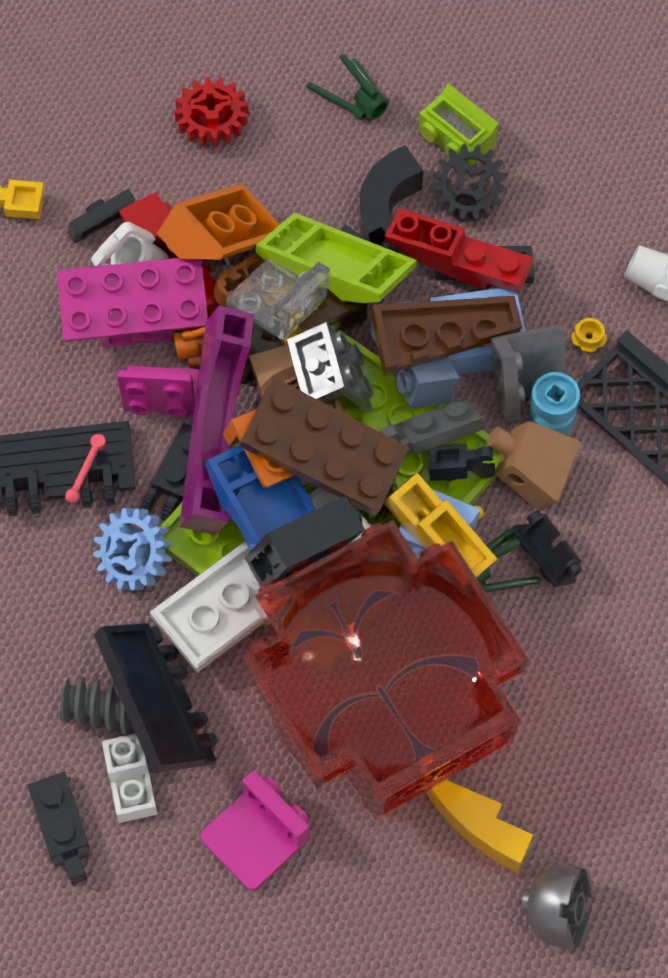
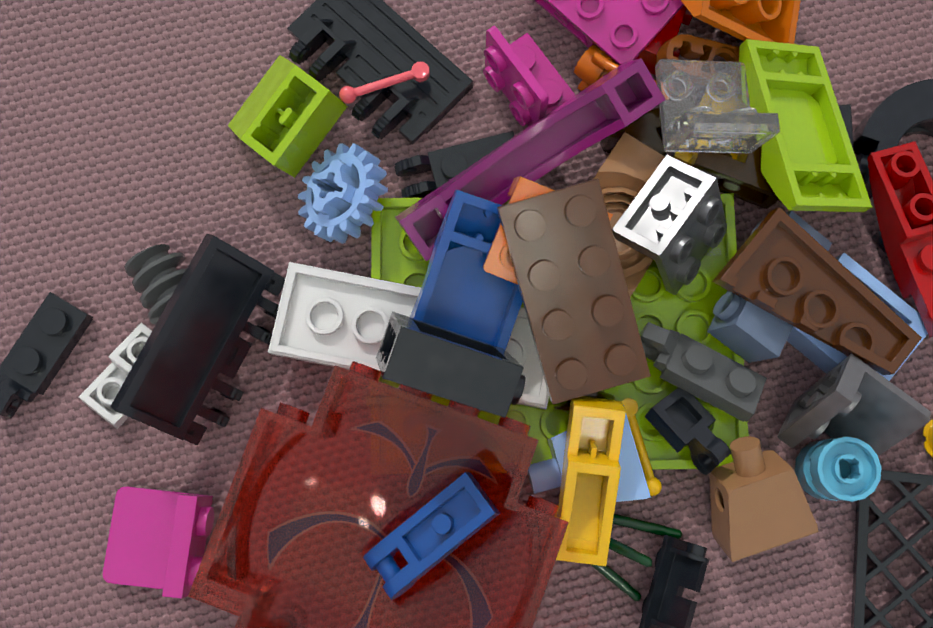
camera: 50 degrees right, 15 degrees up
(46, 544) = (287, 116): none -> lime slope
(396, 648) = (431, 534): none -> blue plate

